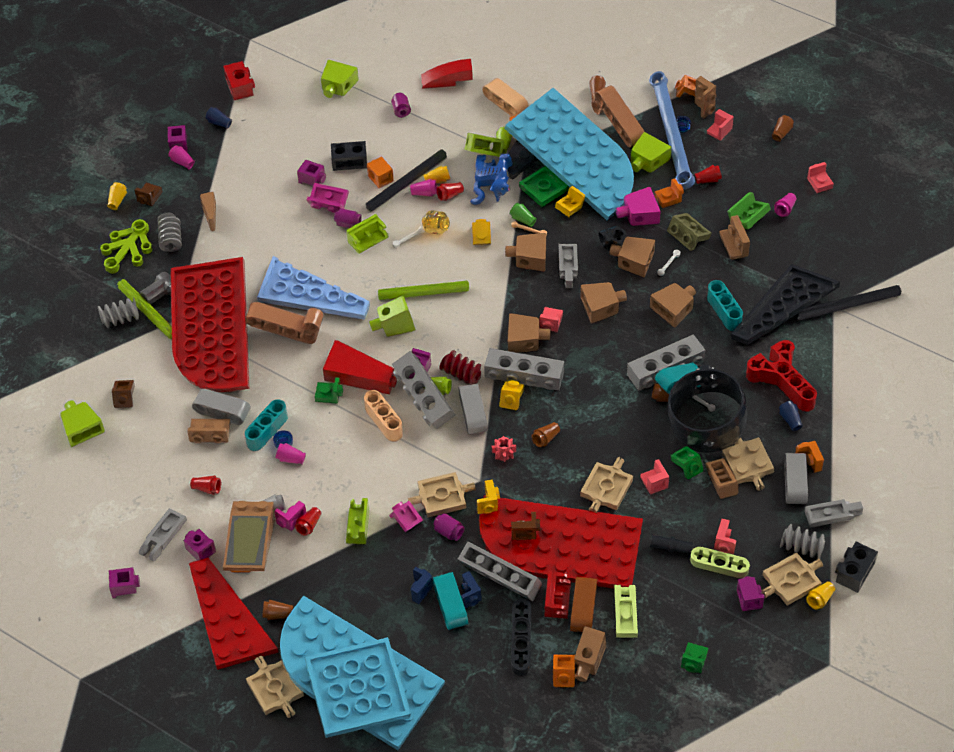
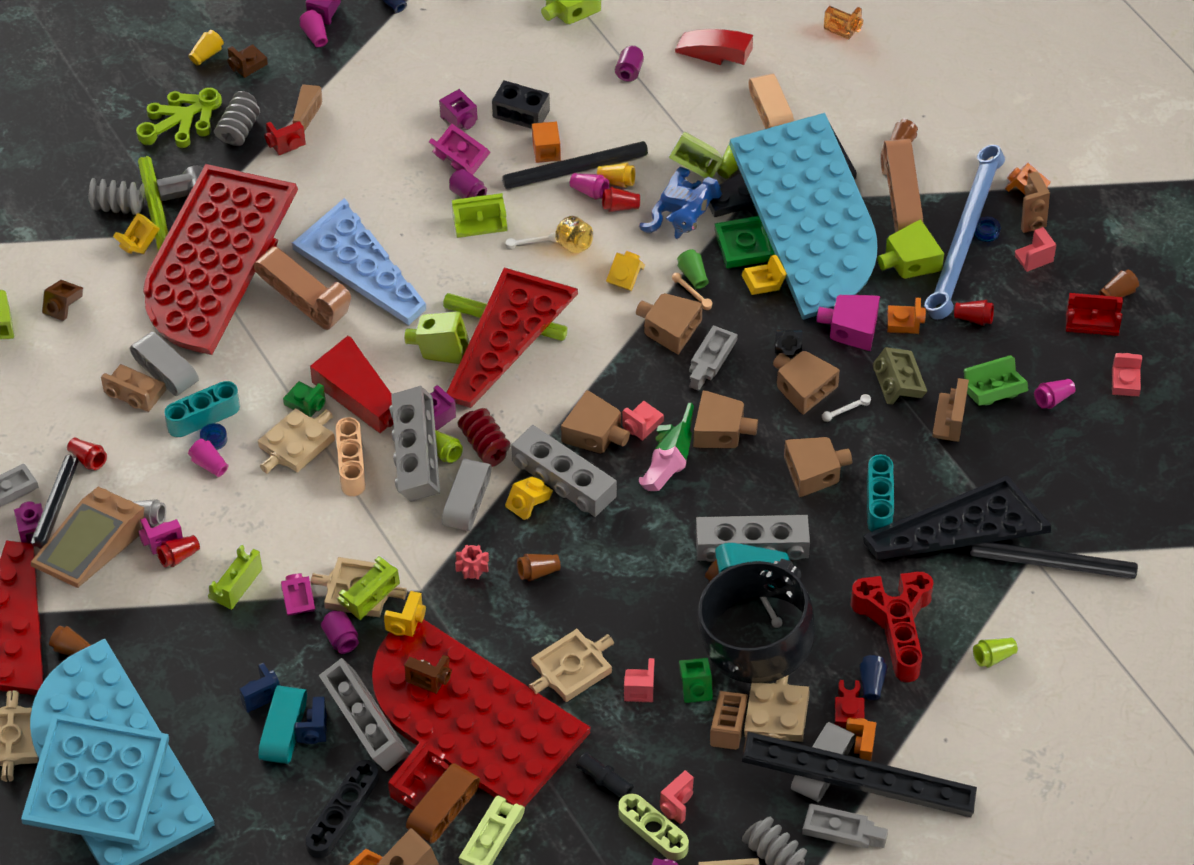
camera: 25 degrees right, 0 degrees up
(149, 331) = (138, 235): none -> yellow bracket
(208, 233) = (286, 138): none -> red bracket
(209, 523) = (55, 501): none -> black axle
(339, 420) = (296, 440): none -> tan plate
(433, 293) = (510, 323): none -> red wing
(453, 490) = (370, 588): none -> lime hinge
(516, 33) = (842, 22): none -> clear orange bracket
(582, 332) = (670, 453): none -> animal
(778, 149) = (1094, 314): none -> red hinge
(786, 440) = (848, 704): none -> red plate
(824, 476) = (859, 774): none -> black tile
(850, 370) = (993, 651): none -> lime cone

